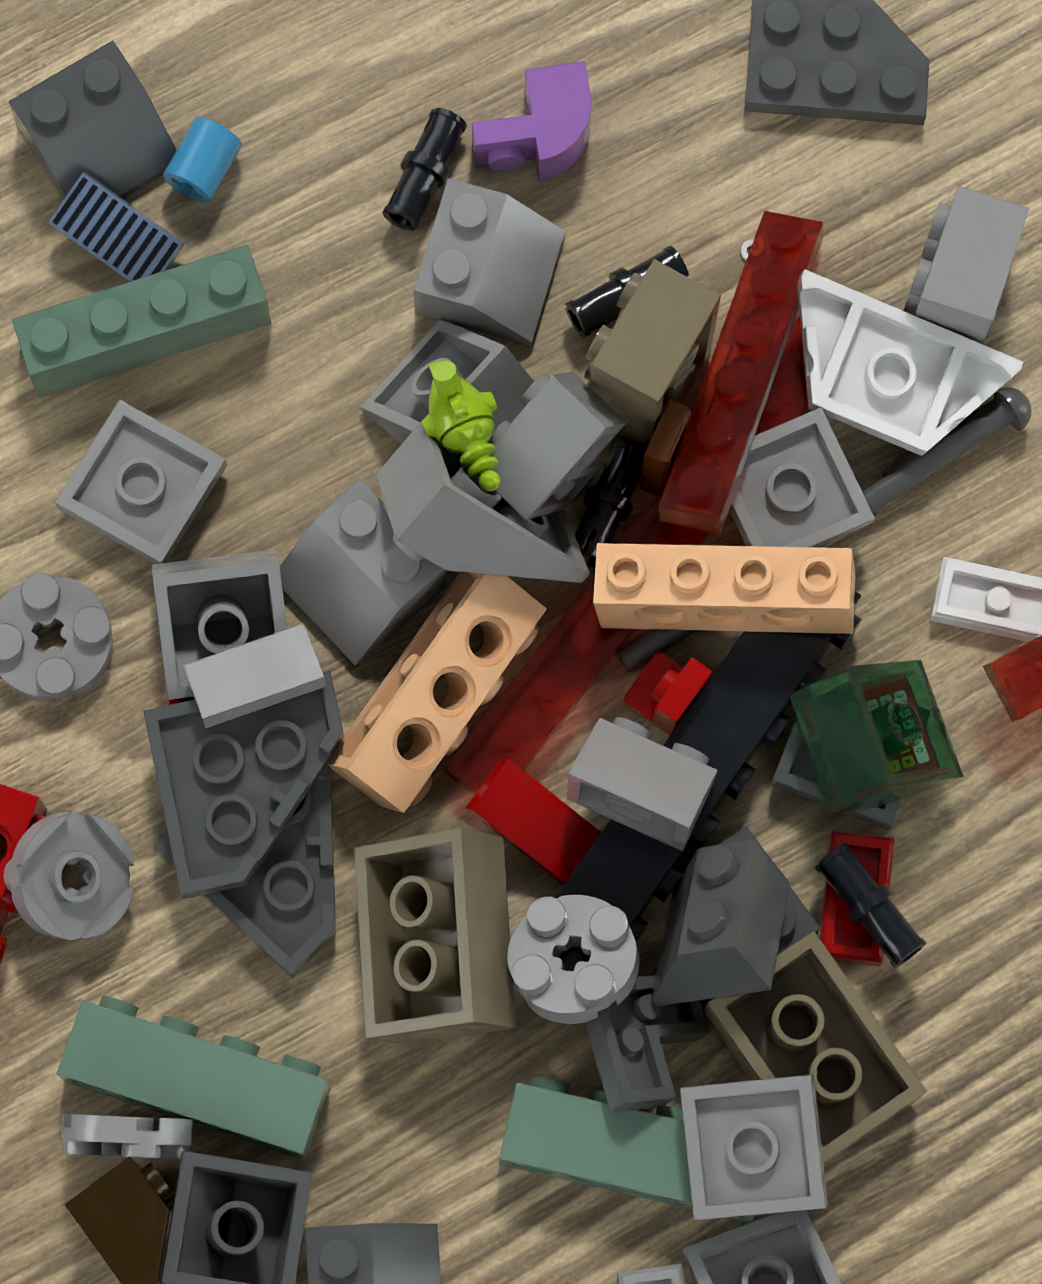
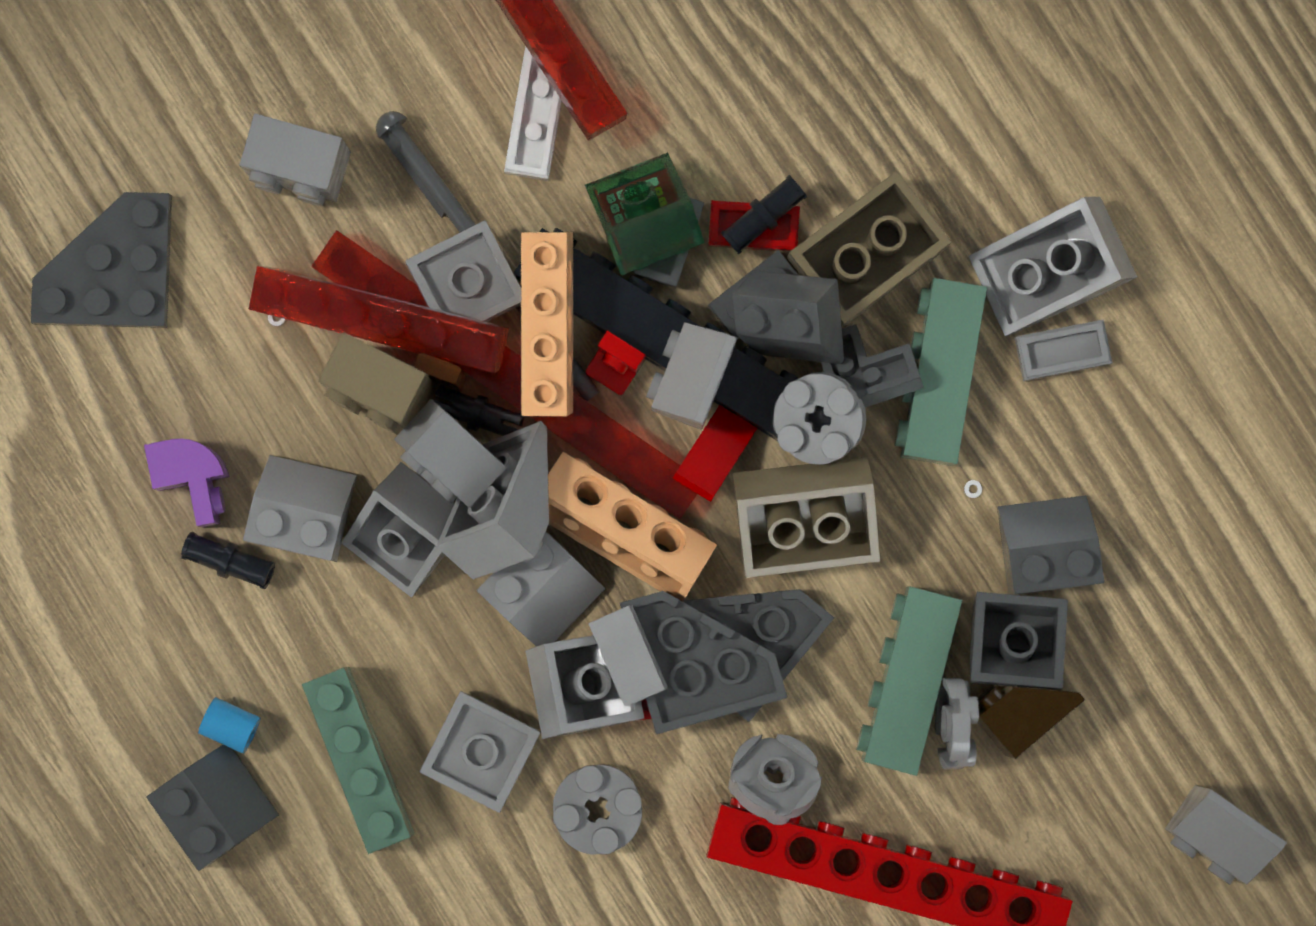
camera: 90 degrees left, 10 degrees up
(114, 230) = (290, 784): tile -> none
(463, 422) = (439, 516): lime piece -> none
(464, 1181) = (968, 484): none -> white piece
(600, 304) = (315, 406): black pin -> none
(754, 1147) = (944, 287): light grey plate -> none
(891, 367) = (370, 212): white wing -> none

